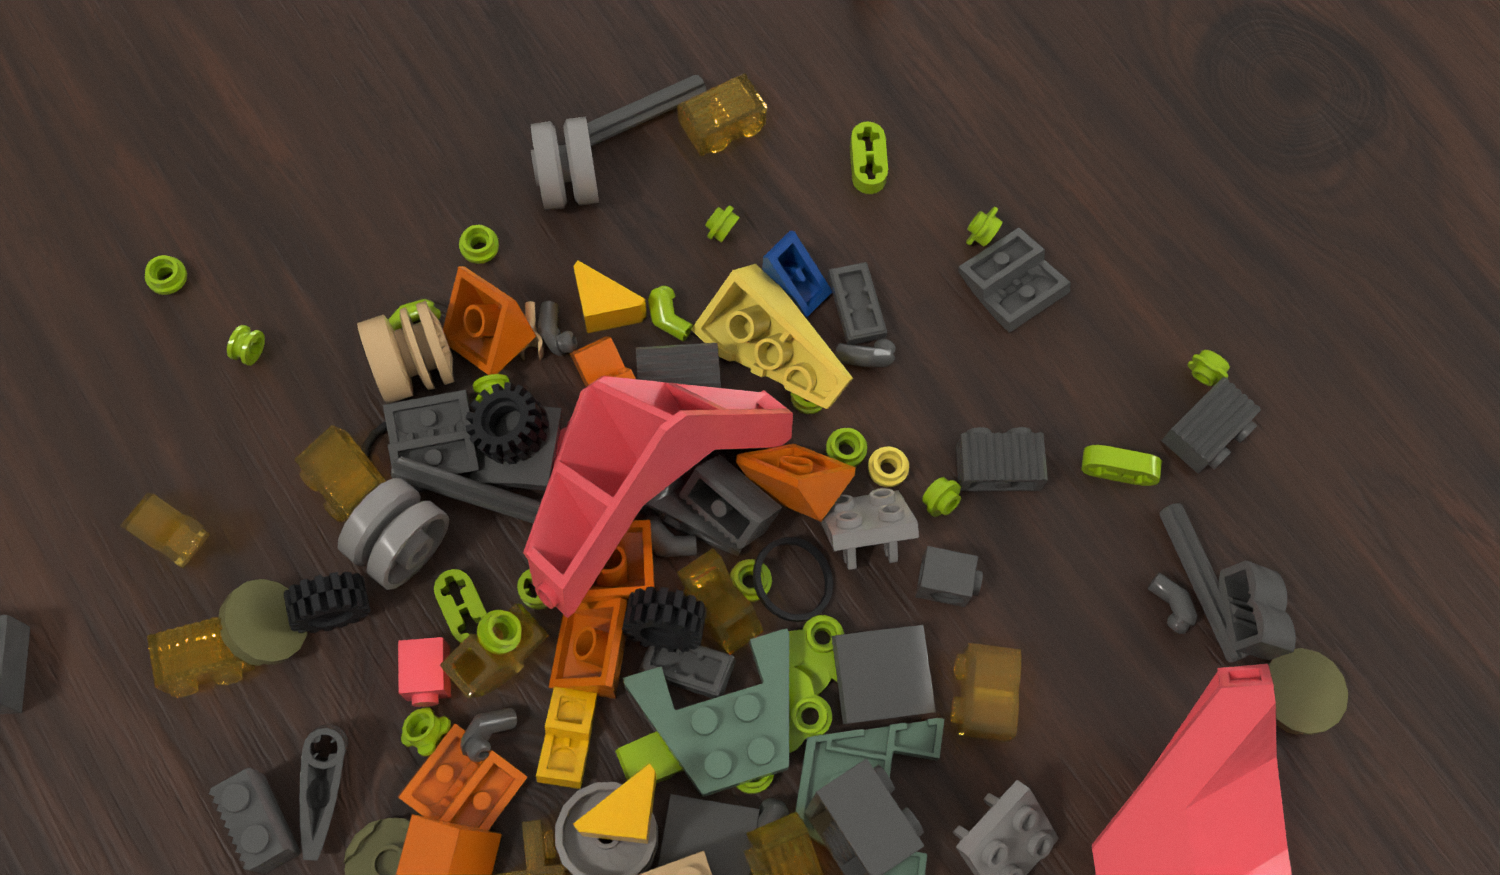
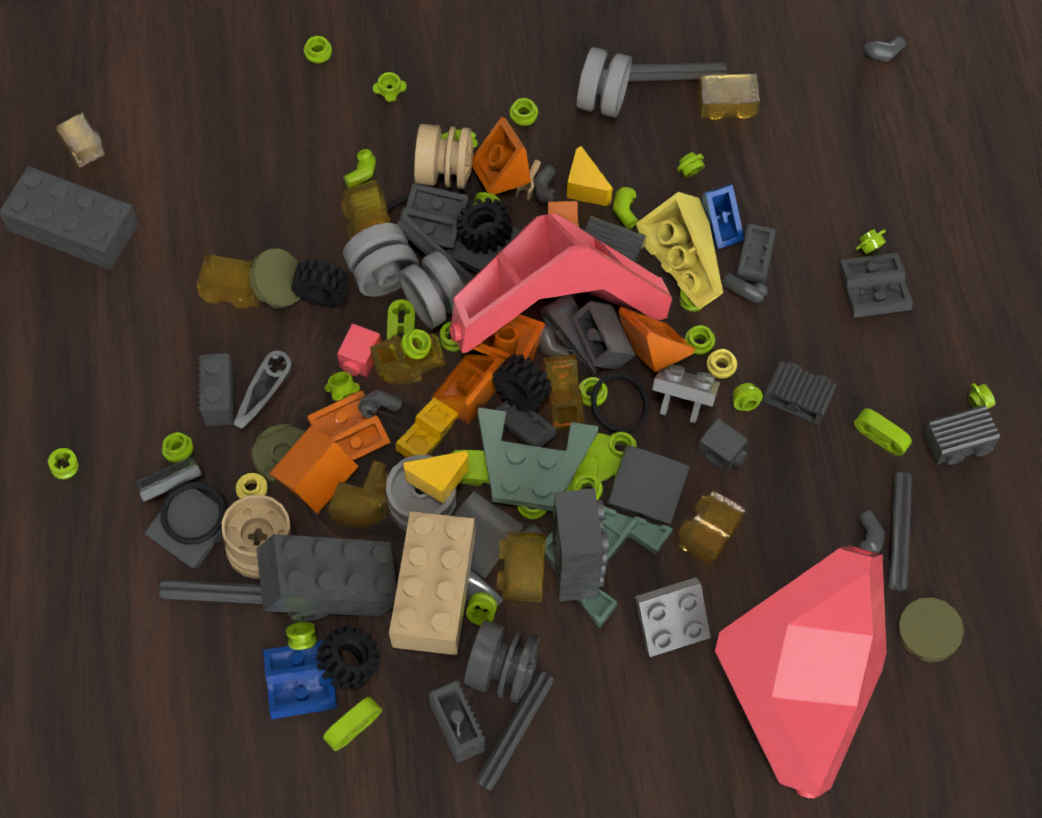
camera: 30 degrees right, 5 degrees down
(165, 529) = (245, 200): clear yellow brick -> none
(245, 345) = (346, 112): lime bush -> none
(286, 274) = (389, 80): none -> lime plate
(308, 411) = (364, 171): none -> lime arm
(482, 542) = (431, 288): none -> light grey wheel
(861, 157) = (810, 162): lime beam -> none
(1256, 611) = (923, 560): dark grey brick -> none

